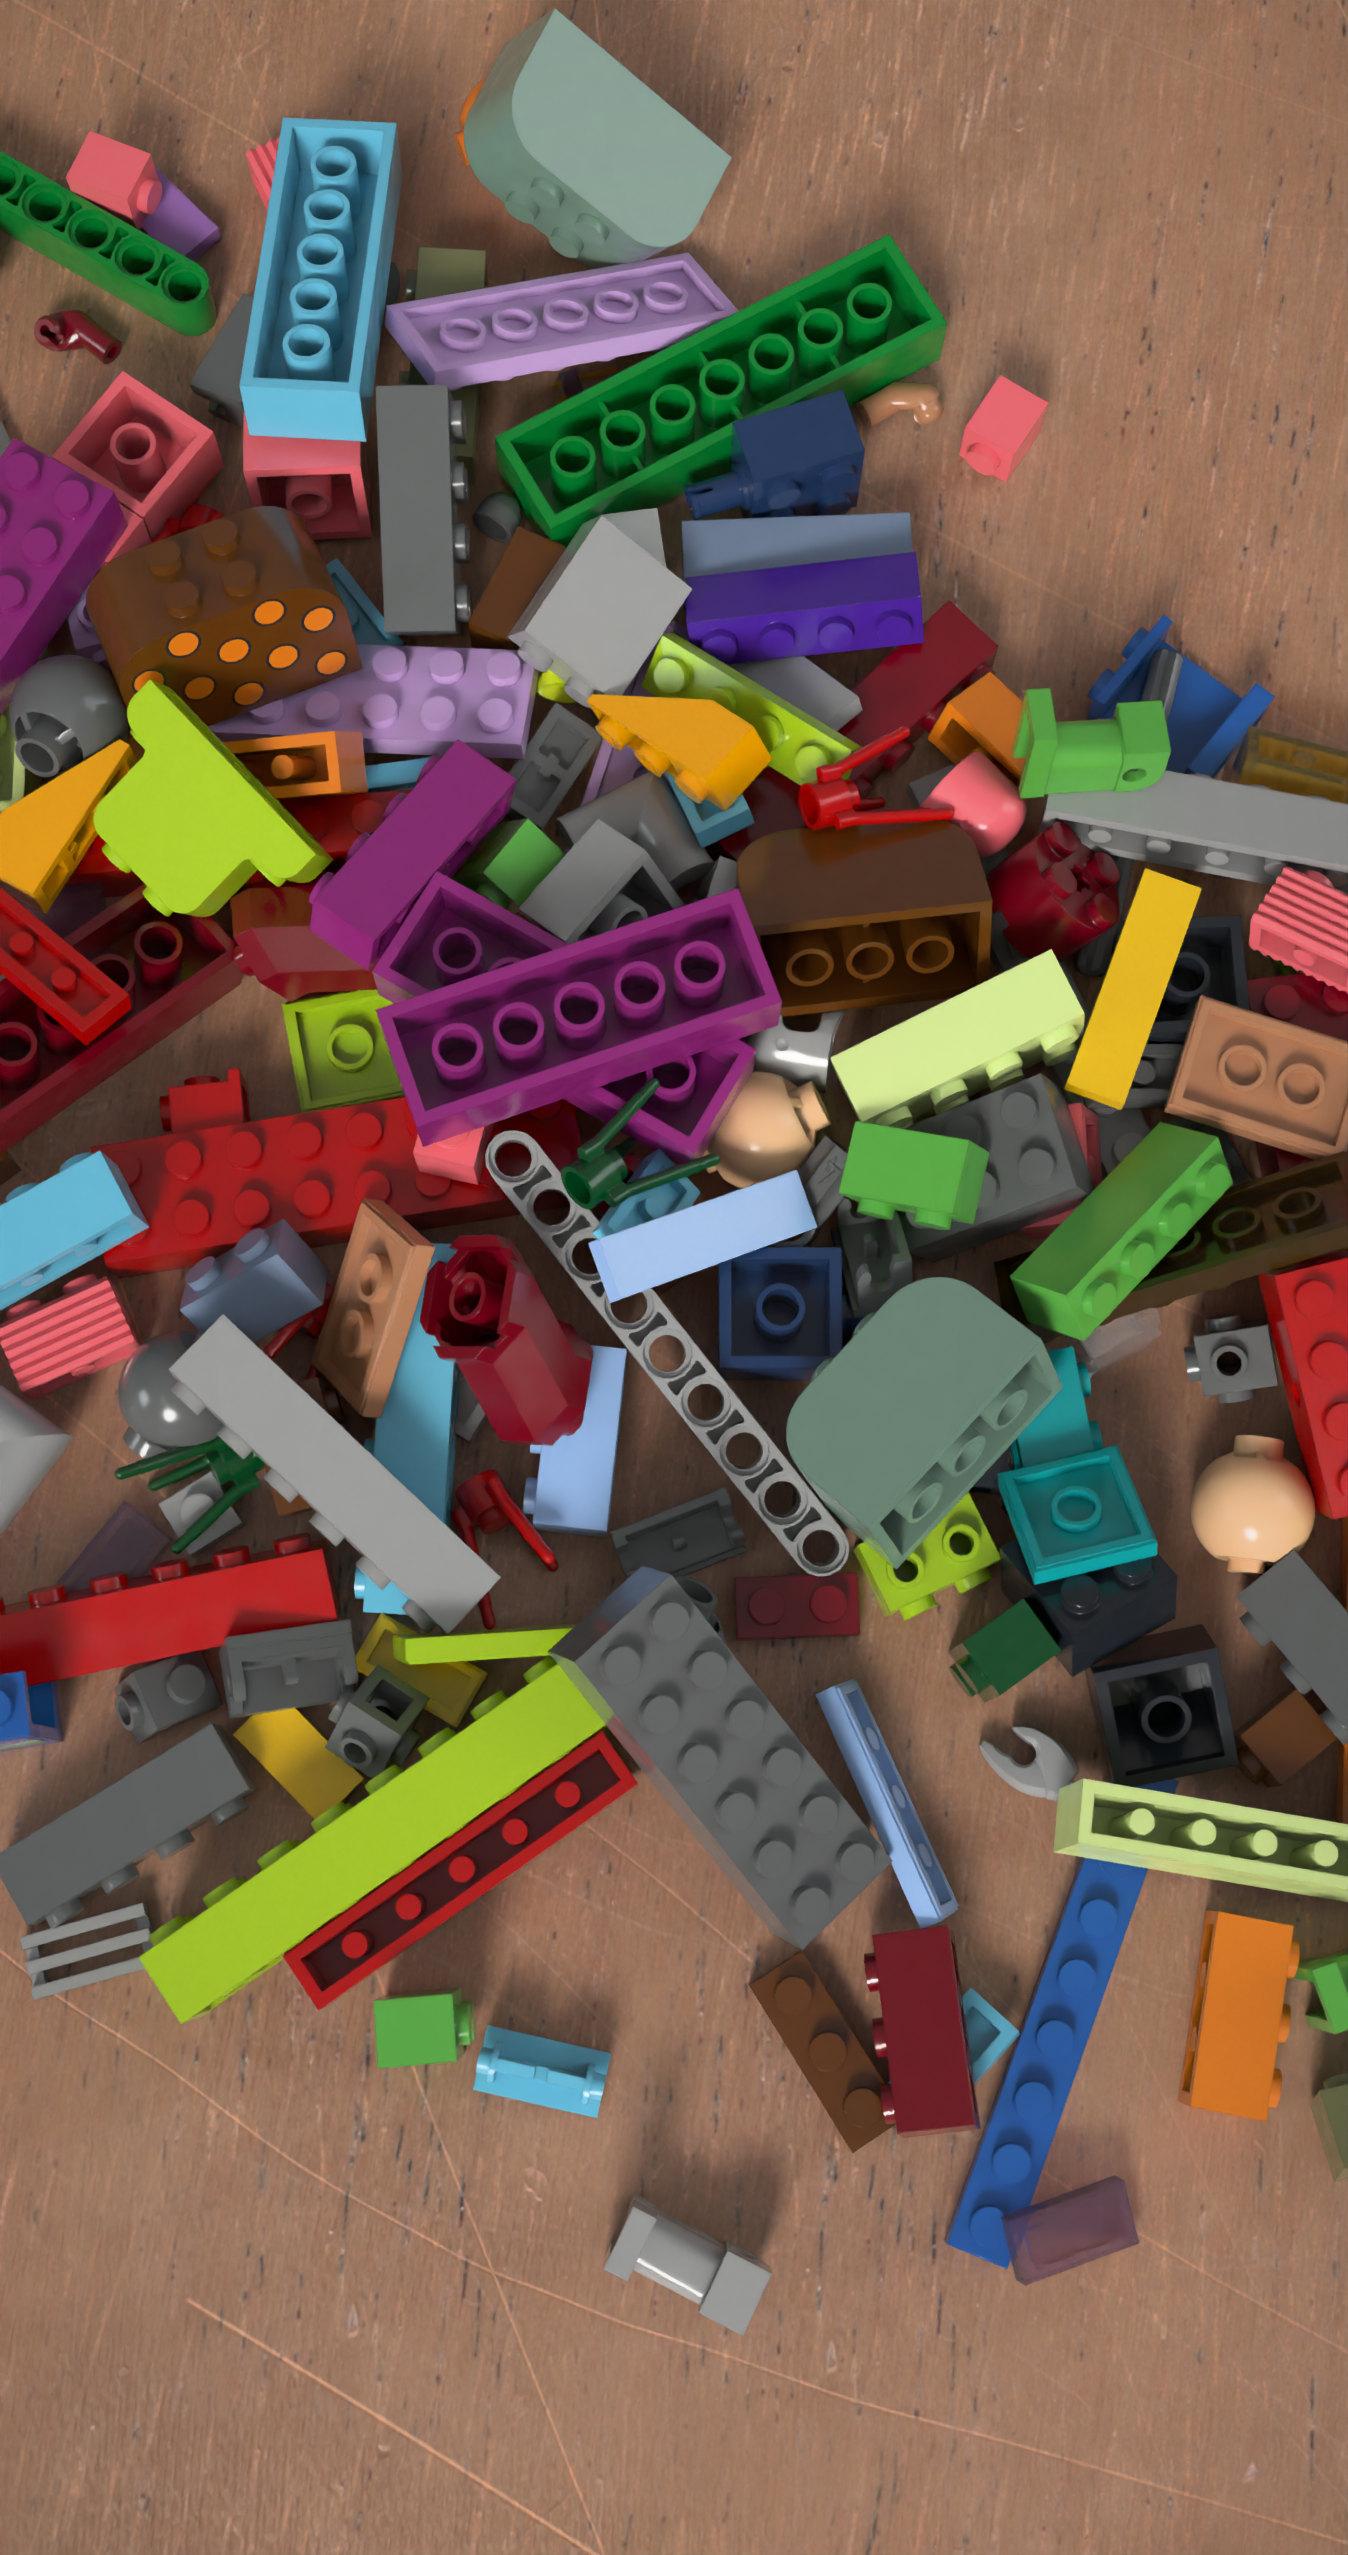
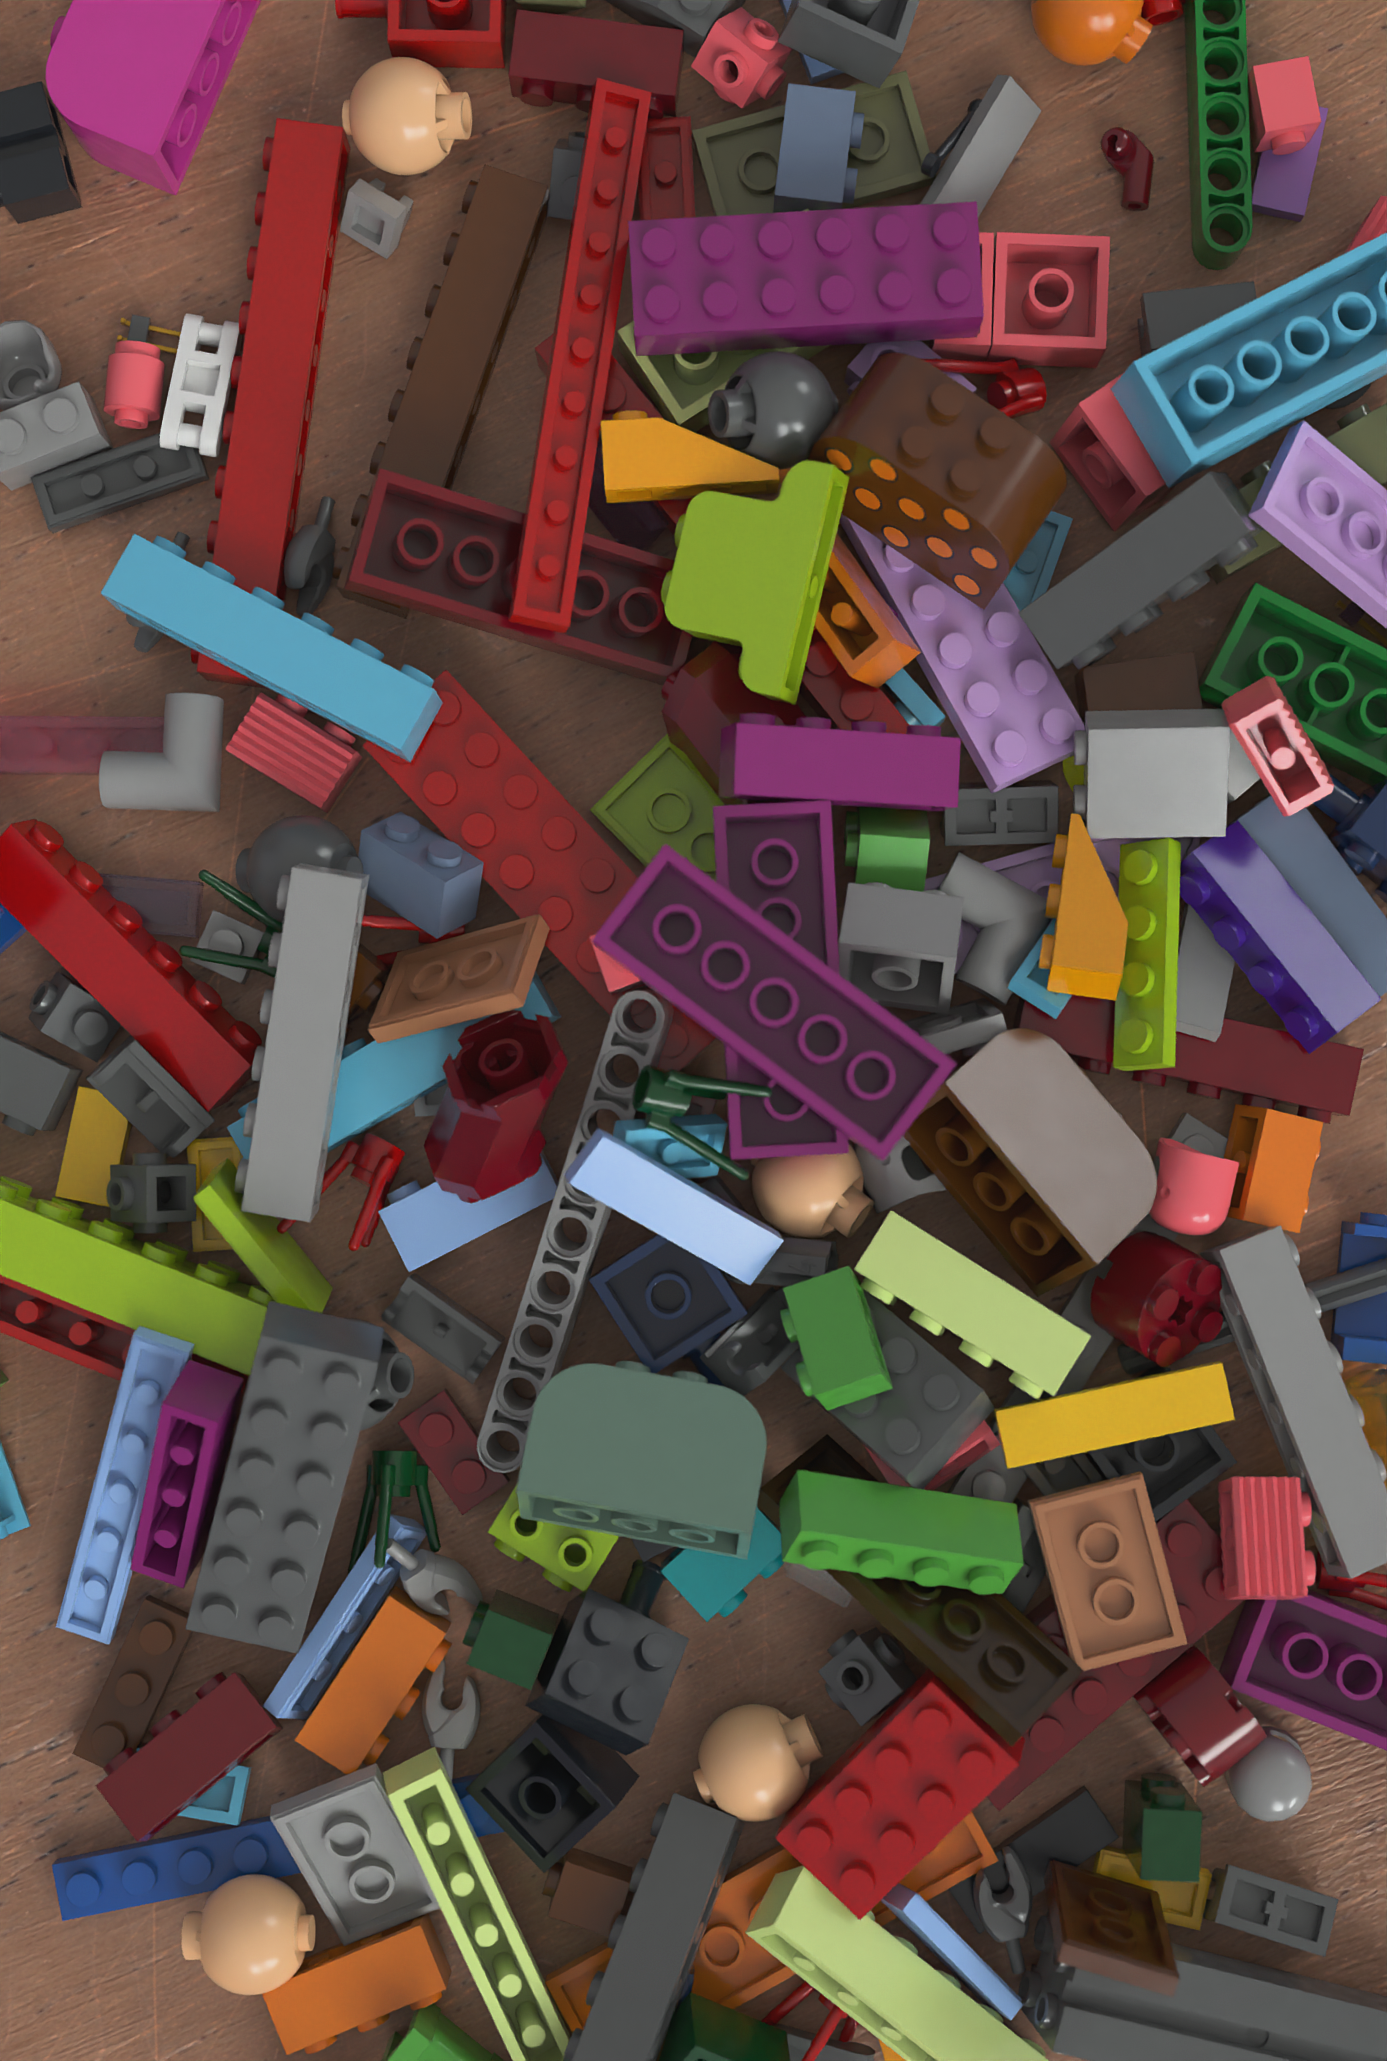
camera: 65 degrees right, 10 degrees up
(205, 1103) = (543, 734): red brick -> none
(498, 516) = (1200, 624): dark grey hinge -> none
(631, 1922) = (113, 1514): none -> light blue tile
(645, 494) = (1277, 746): none -> coral brick
(657, 1848) = (186, 1472): none -> magenta brick
(783, 1673) = (391, 1477): none -> dark green plant
(837, 801) = (1113, 1075): red plant -> none
(894, 1696) = (428, 1574): none -> light grey hand
(966, 1814) = (375, 1684): none -> orange brick
(1069, 2230) = (119, 1951): clear purple tile -> none
(1077, 1514) = (649, 1634): teal tile -> none
(1090, 752) = (1303, 1280): bright green piece -> none
(1117, 1930) = (355, 1854): none -> light grey tile
(1130, 2082) = (249, 1934): none -> light nougat brick

